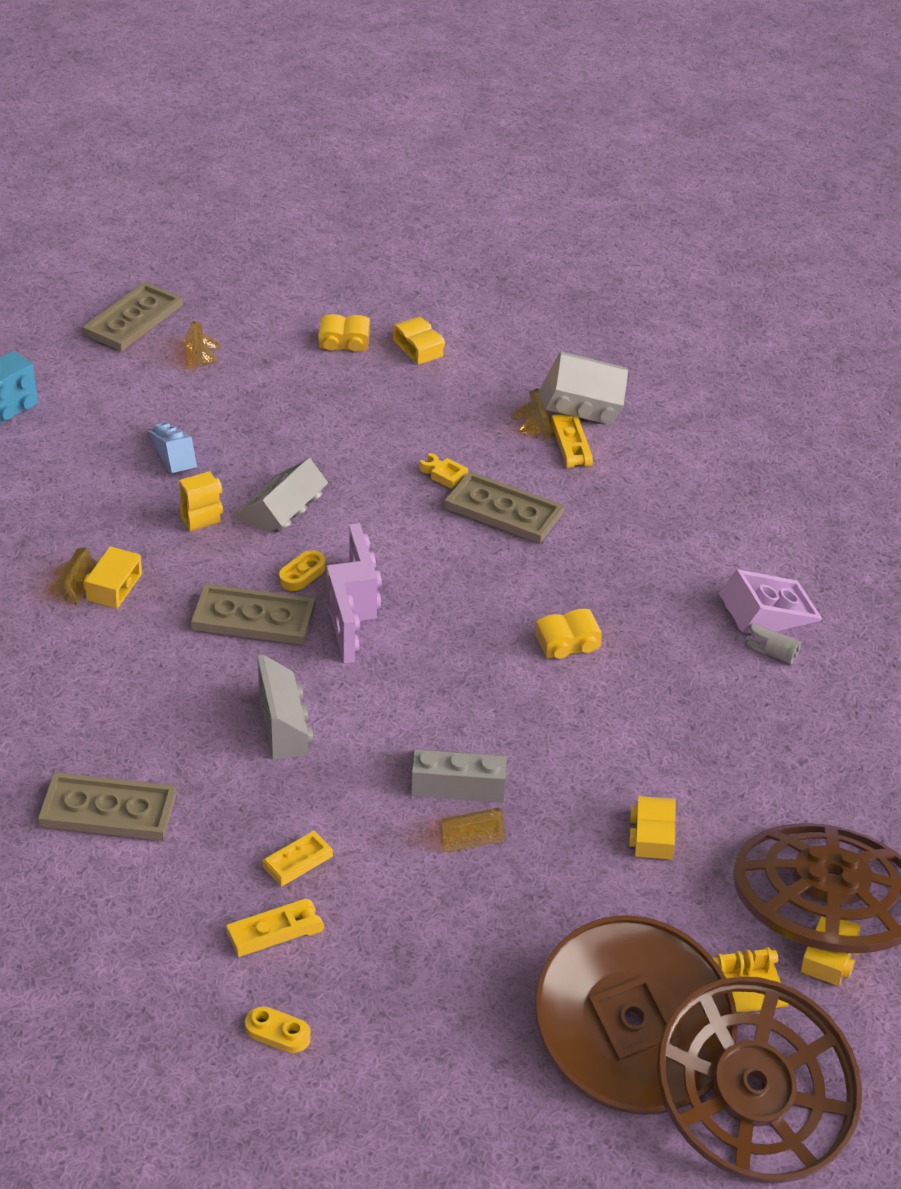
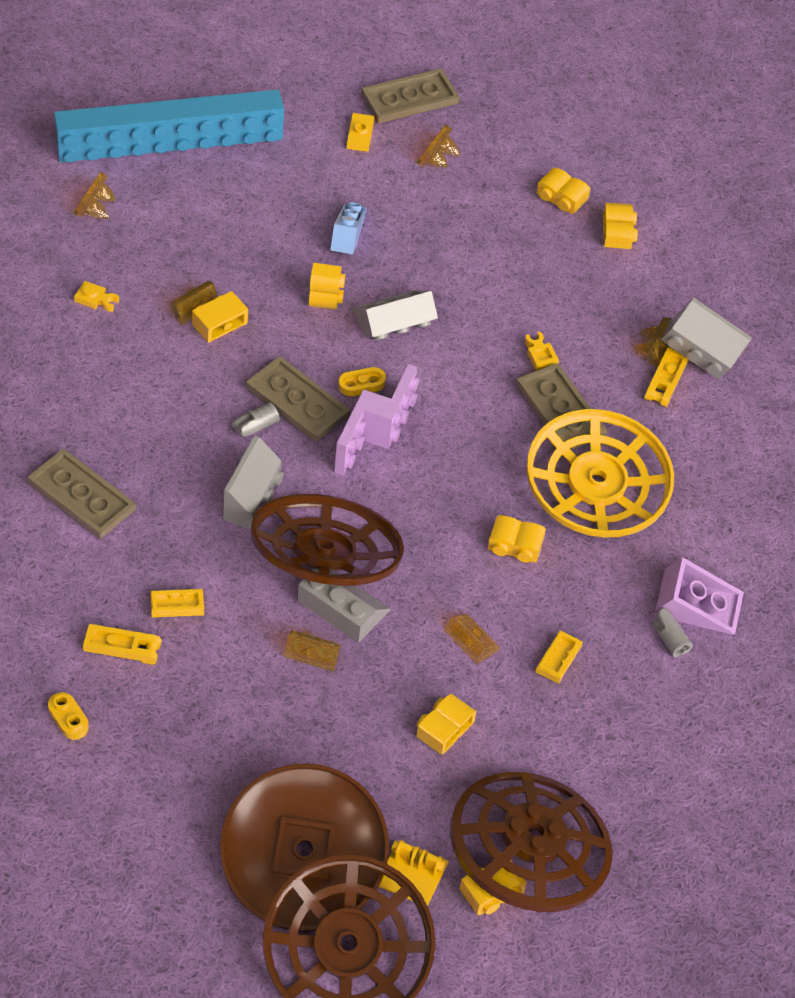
camera: 30 degrees right, 10 degrees up
(110, 365) = (360, 132): none -> yellow plate
(230, 651) = (256, 420): none -> light grey hinge
(406, 726) = (325, 546): none -> reddish brown dish
(593, 534) = (602, 464): none -> yellow dish
(603, 742) = (471, 638): none -> clear yellow slope
(697, 715) = (559, 656): none -> yellow plate

